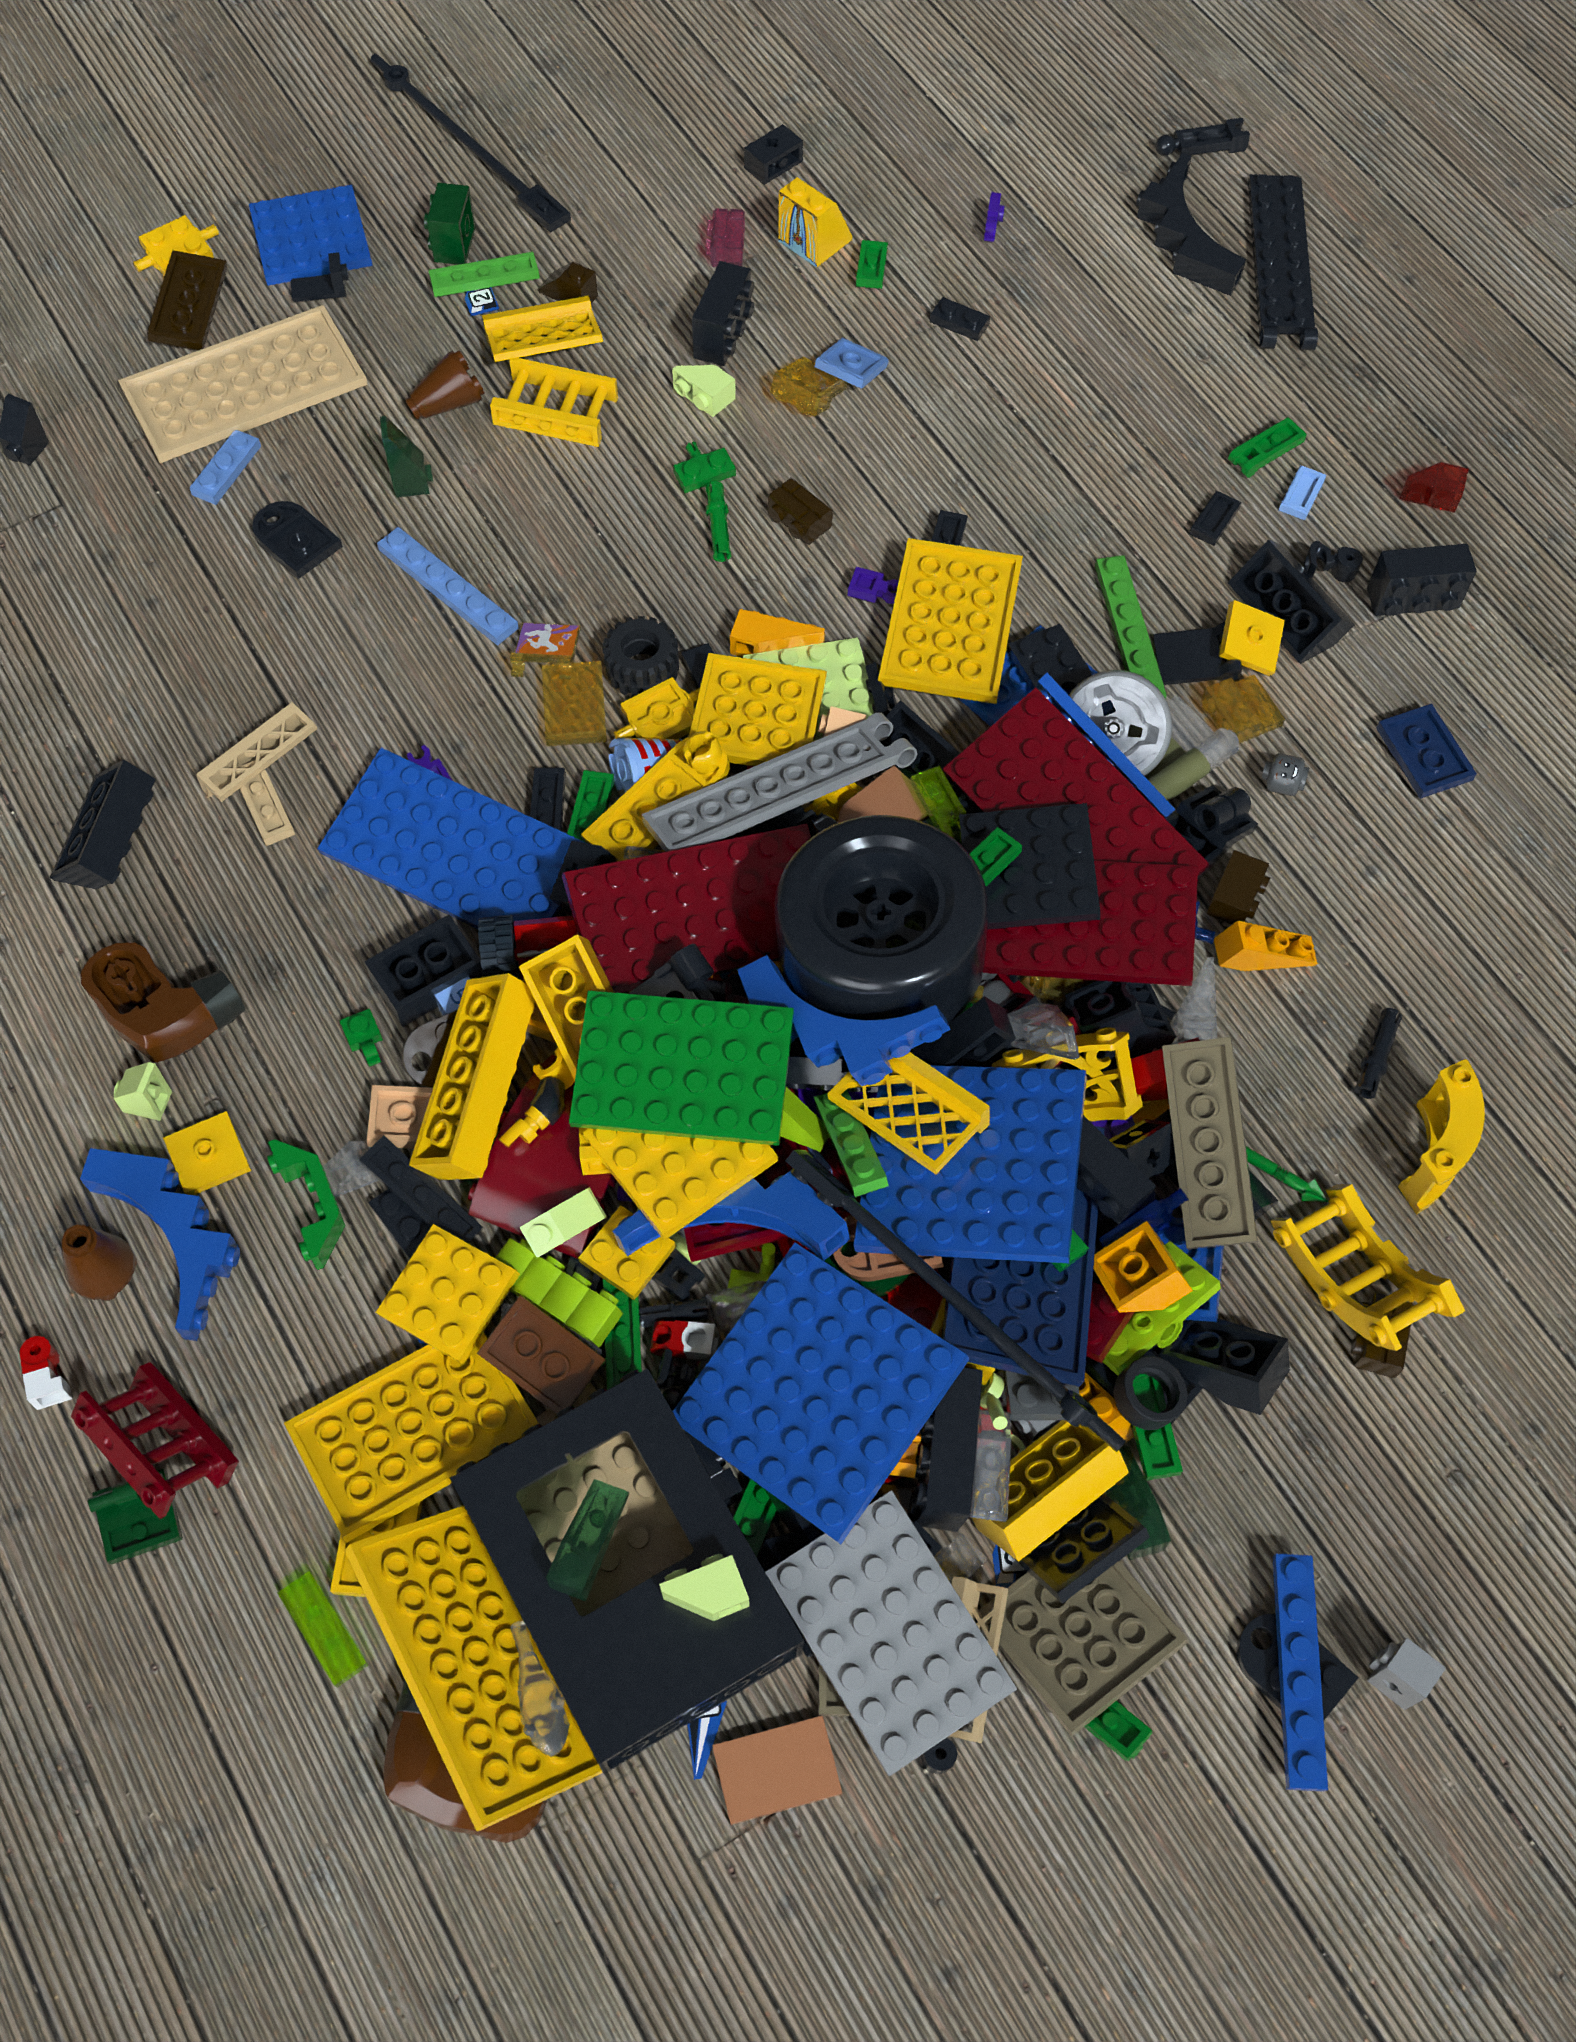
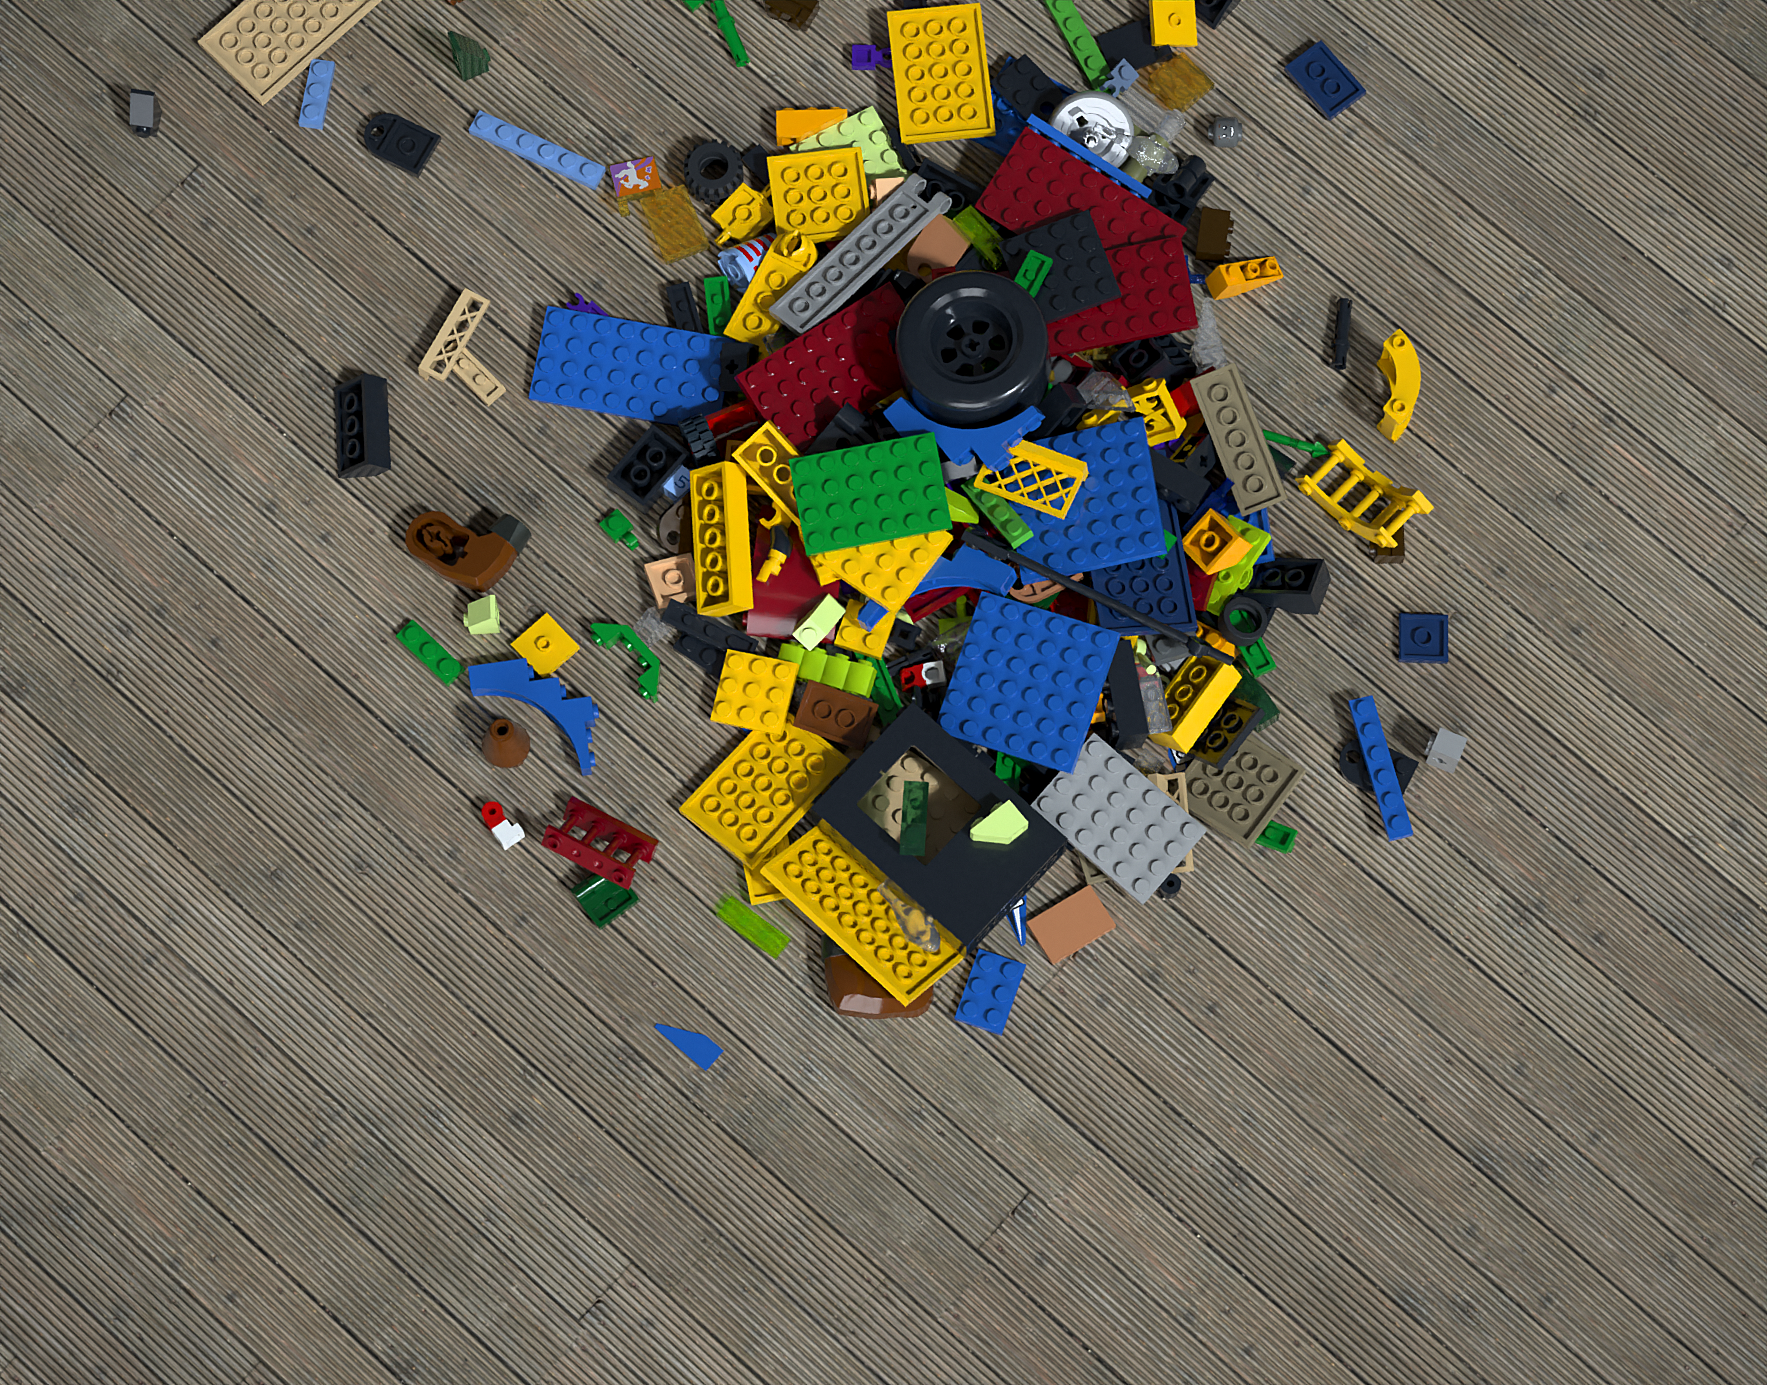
camera: 15 degrees left, 10 degrees up
(59, 1119) = (430, 653): none -> green plate
(170, 1781) = (694, 1045): none -> blue sticker
(624, 1839) = (990, 992): none -> blue plate
(1172, 680) = (1120, 78): none -> sand blue plate
(1177, 760) = (1144, 149): none -> clear piece
(1402, 1494) = (1423, 638): none -> dark blue tile

